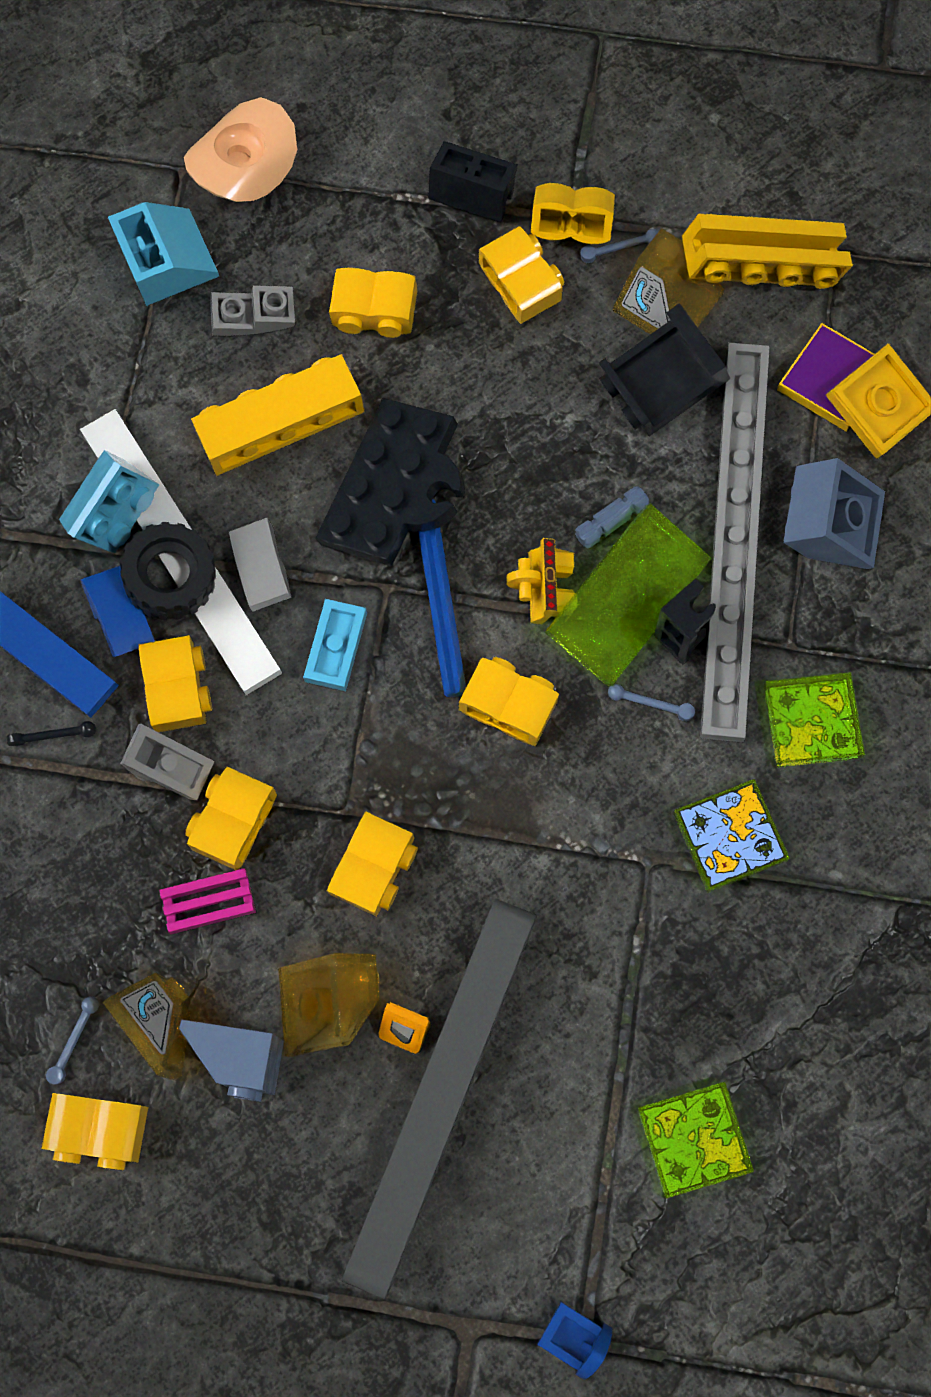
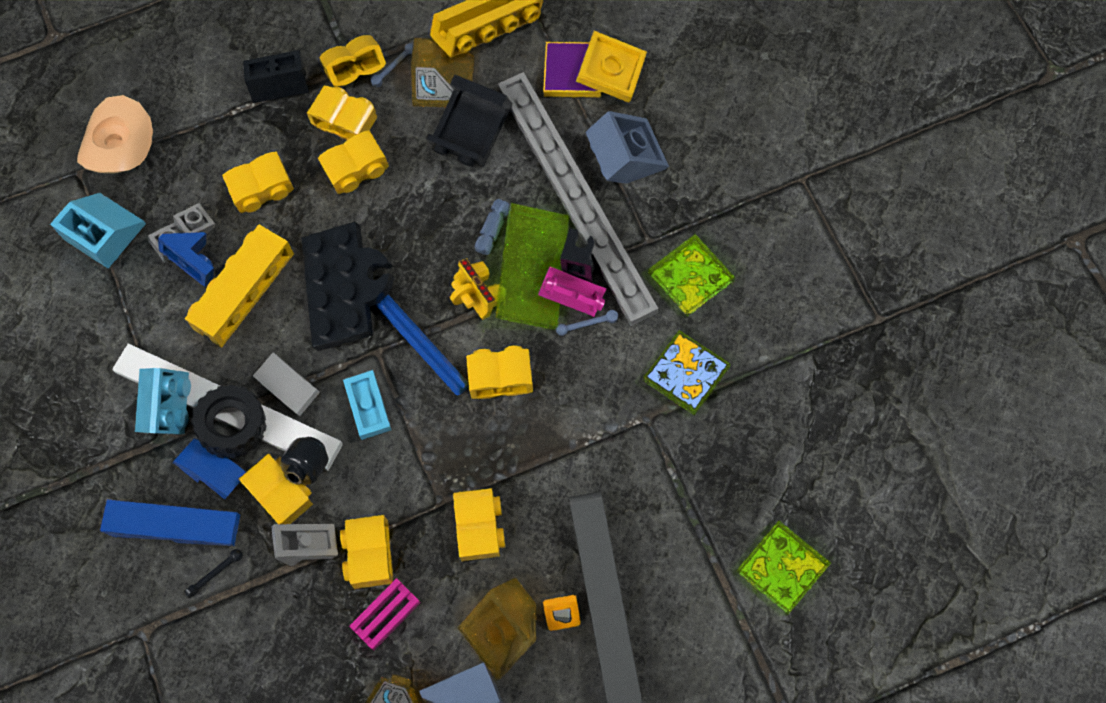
camera: 30 degrees left, 5 degrees down
(222, 669) = (304, 460): none -> black head
(239, 334) = (184, 250): none -> blue slope
(497, 341) = (353, 162): none -> yellow brick
(655, 655) = (572, 291): none -> dark pink hinge

